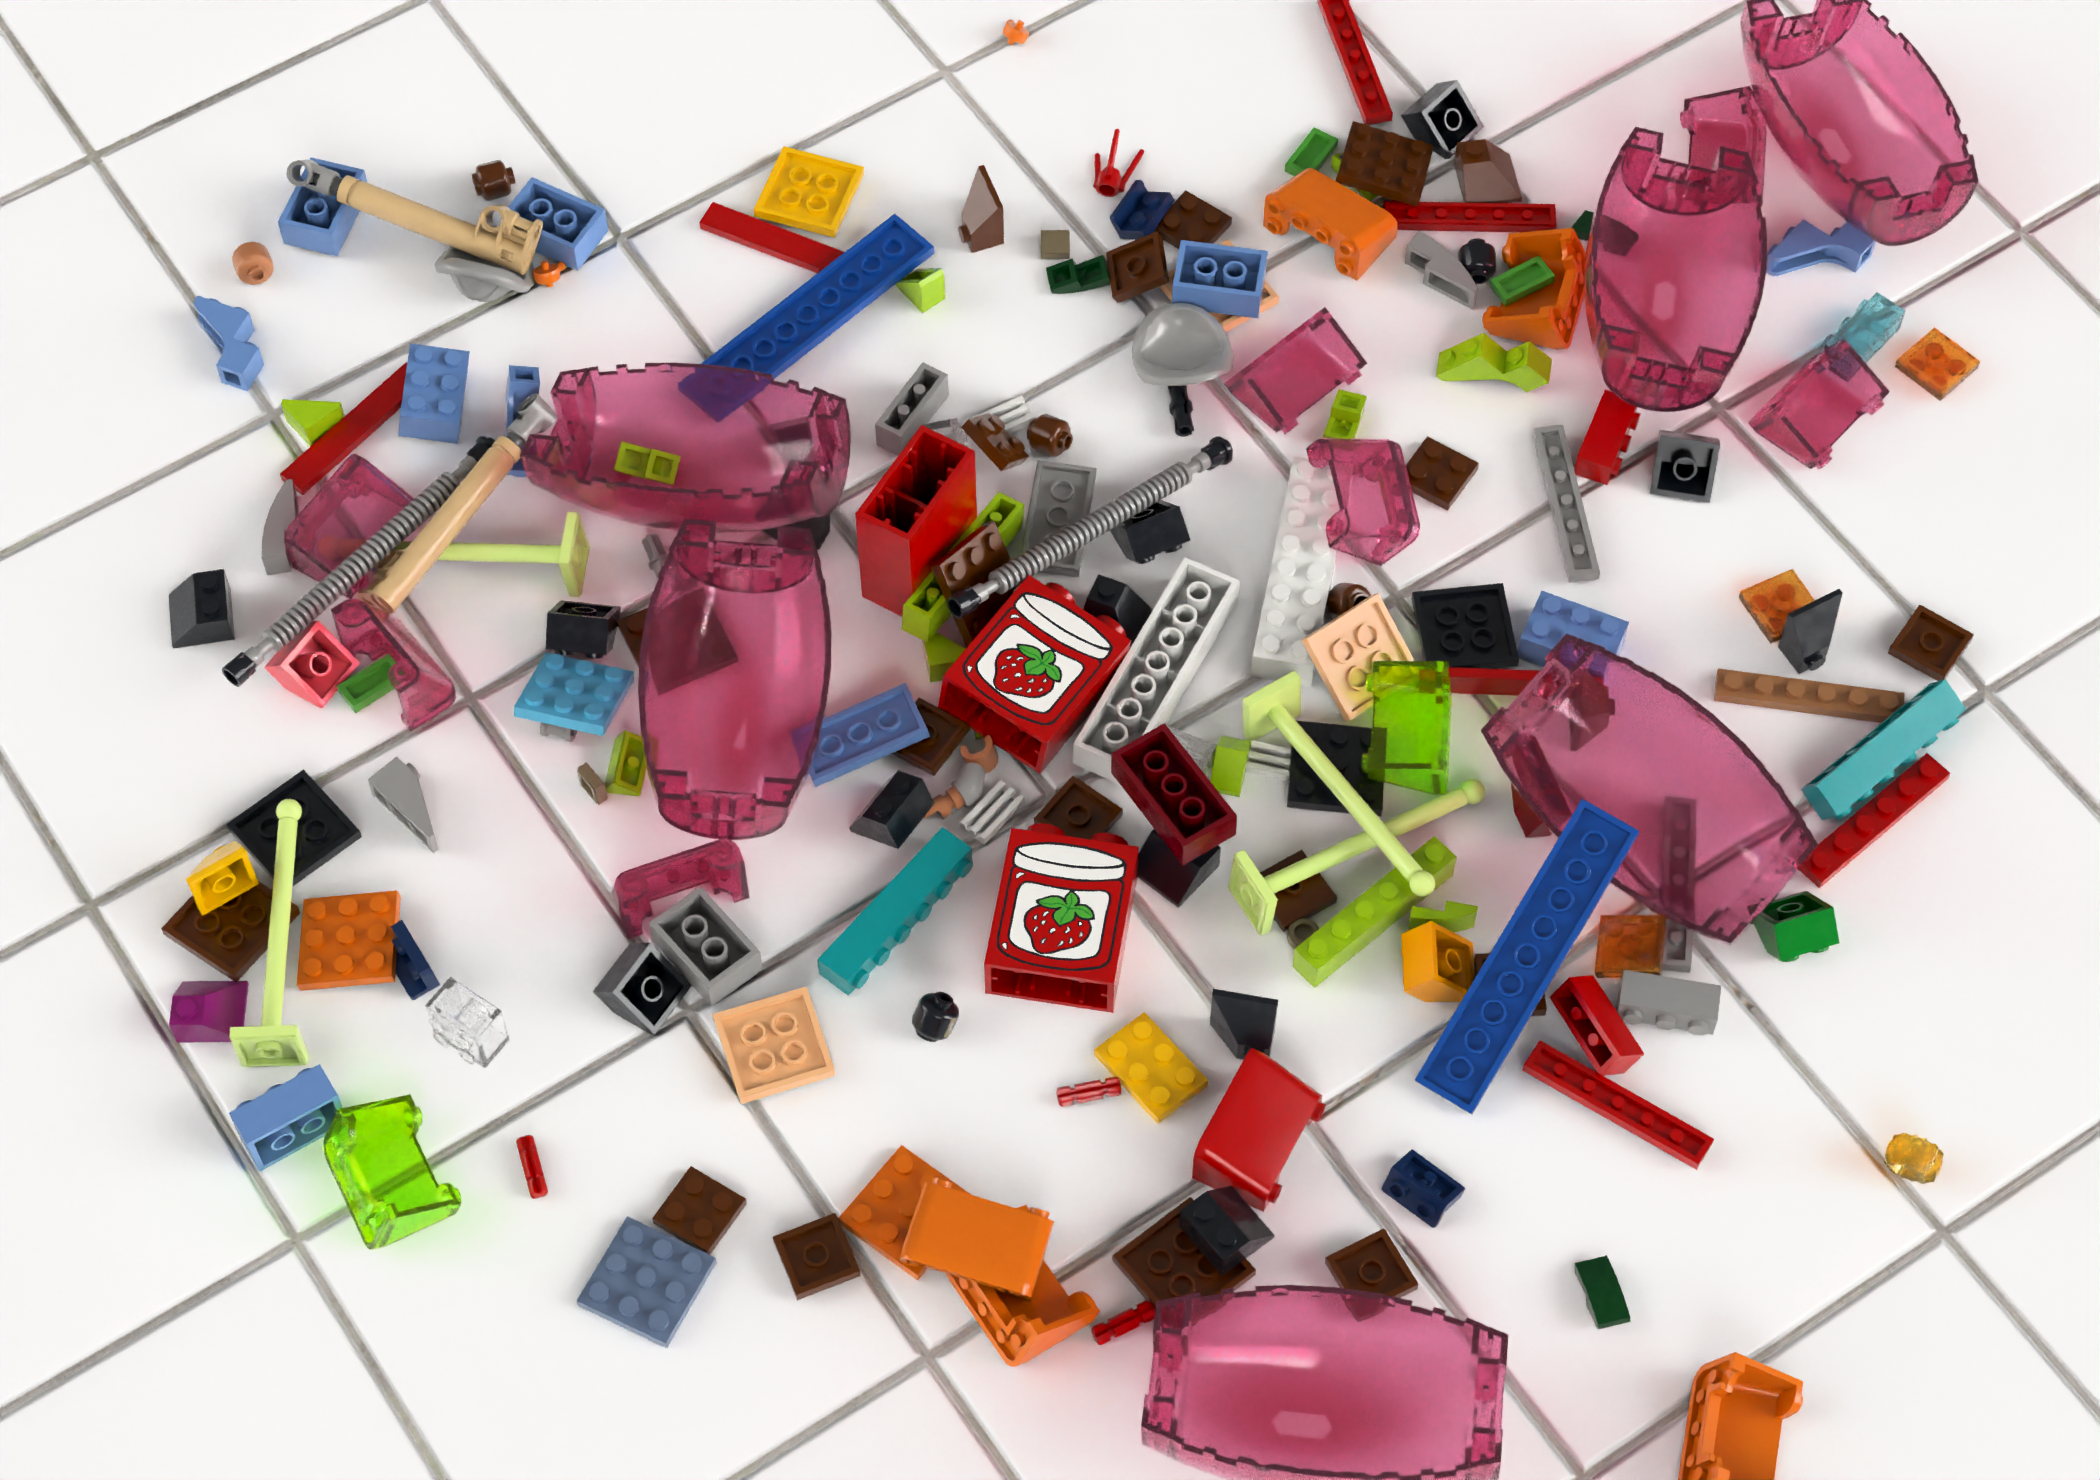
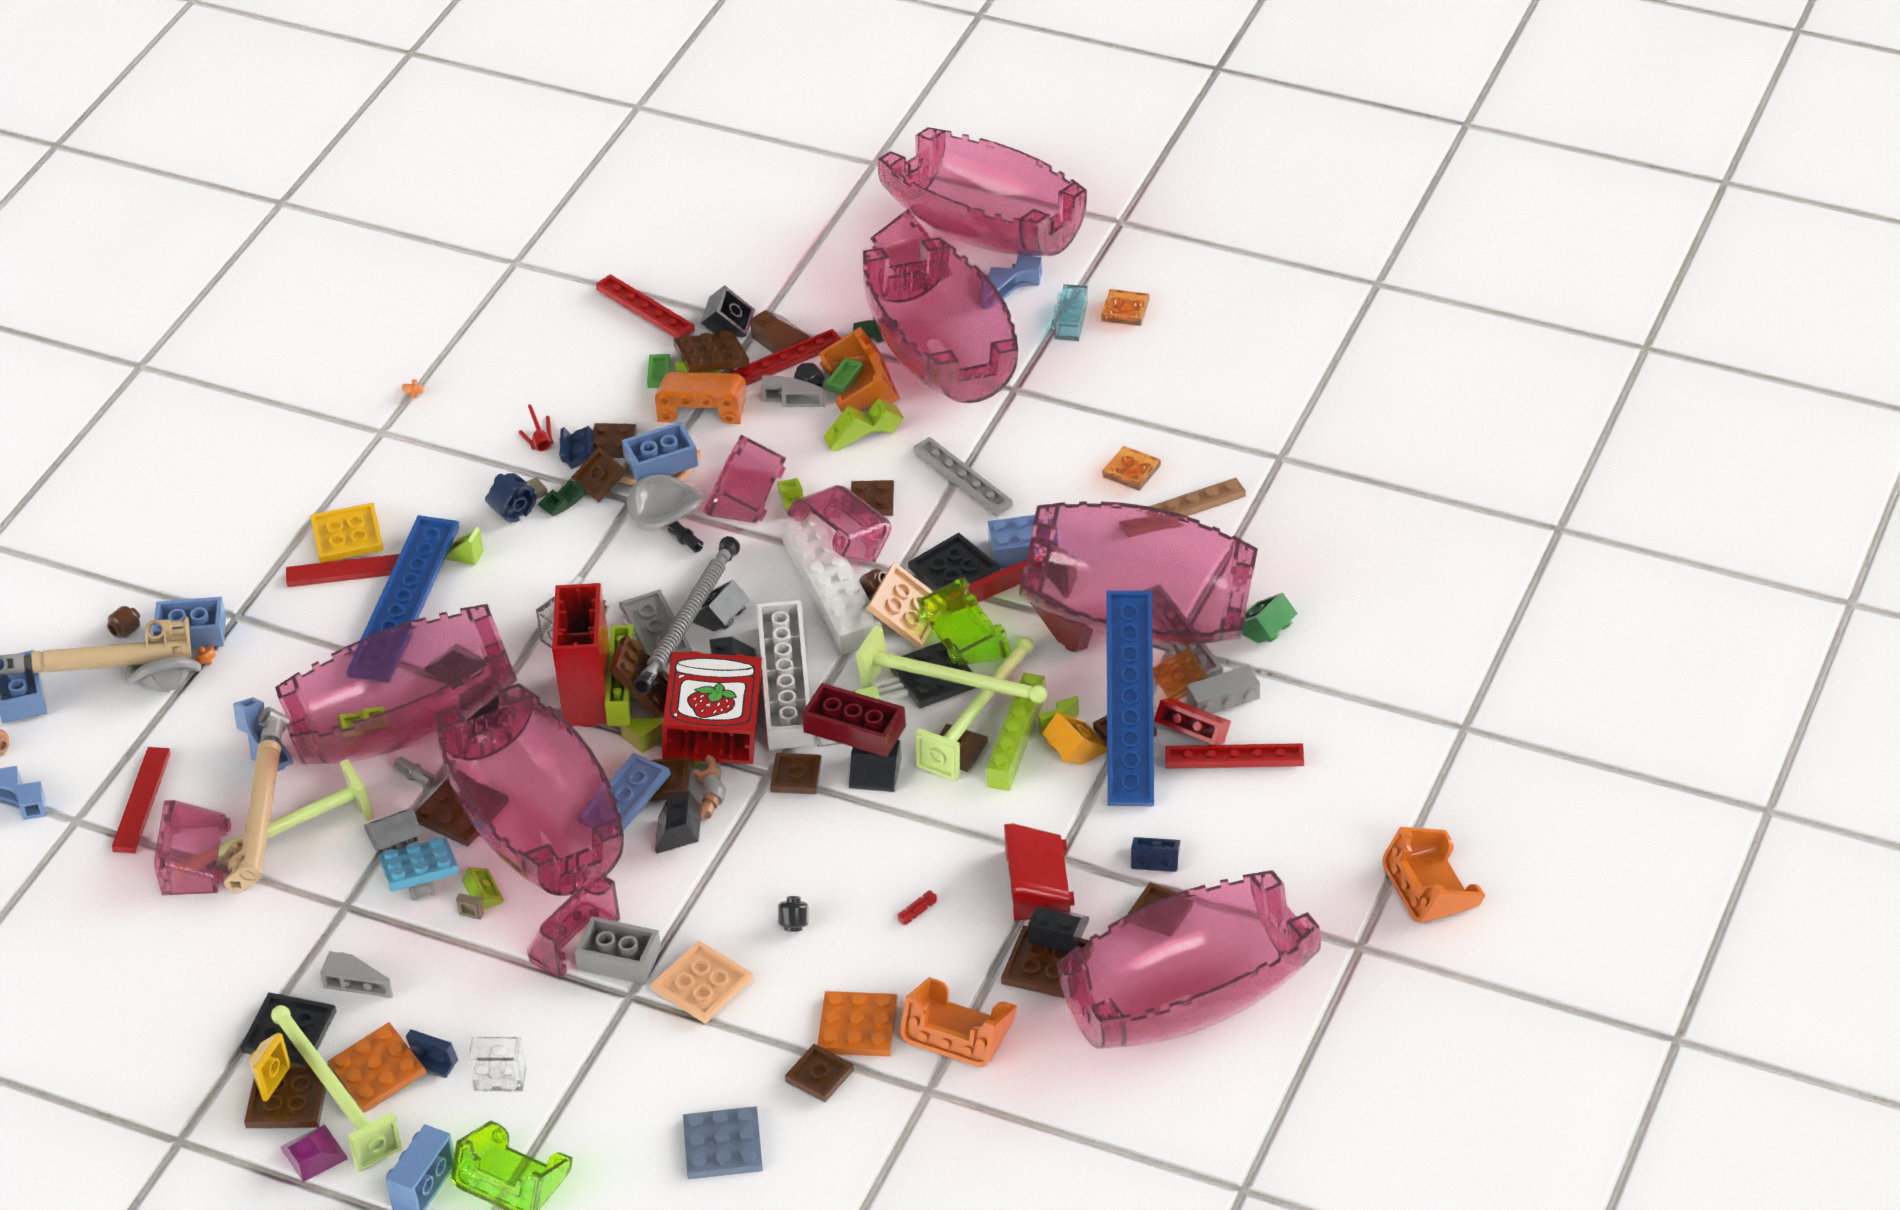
camera: 30 degrees left, 15 degrees down
(201, 610) = (121, 943): black slope -> none
(281, 514) = (142, 875): light grey slope -> none
(312, 418) = (107, 806): lime slope -> none
(312, 664) = (224, 934): coral slope -> none
(354, 567) = (216, 860): light grey hose -> none
(367, 684) = (272, 928): bright green tile -> none
(415, 676) = (256, 893): clear pink windscreen -> none
(433, 393) = (185, 751): medium blue brick -> none
(532, 1166) = (599, 1122): red axle -> none
(642, 987) = (592, 993): black slope -> none
(699, 1210) = (725, 1088): reddish brown plate -> none
(895, 912) = (722, 876): teal brick -> none
(911, 408) = (515, 613): light grey brick -> none
(977, 1239) = (915, 1004): orange windscreen -> none
(980, 808) = (741, 786): white tile -> none
(982, 215) = (475, 486): slope -> none
(1014, 245) = (511, 497): none -> dark blue brick
(1049, 435) = (615, 587): reddish brown head -> none
(1061, 918) = (832, 824): brick -> none
(1123, 1322) = (1033, 1009): red axle -> none
(1151, 1067) = (945, 876): yellow plate -> none
(1244, 1021) = (984, 820): black slope -> none
(1300, 931) = (979, 766): dark tan tile -> none
(1602, 1292) = (1301, 850): dark green slope -> none
(1606, 439) = (961, 431): red brick -> none
(1684, 466) = (1019, 424): black slope -> none
(1809, 632) = (1160, 470): black slope -> none
(1820, 405) = (1074, 356): clear pink windscreen -> none
(1874, 819) = (1269, 545): red plate -> none
(1883, 750) = (1251, 499): teal brick -> none
(1913, 1158) = (1421, 694): clear yellow gear -> none
(1930, 643) = (1231, 446): reddish brown plate -> none

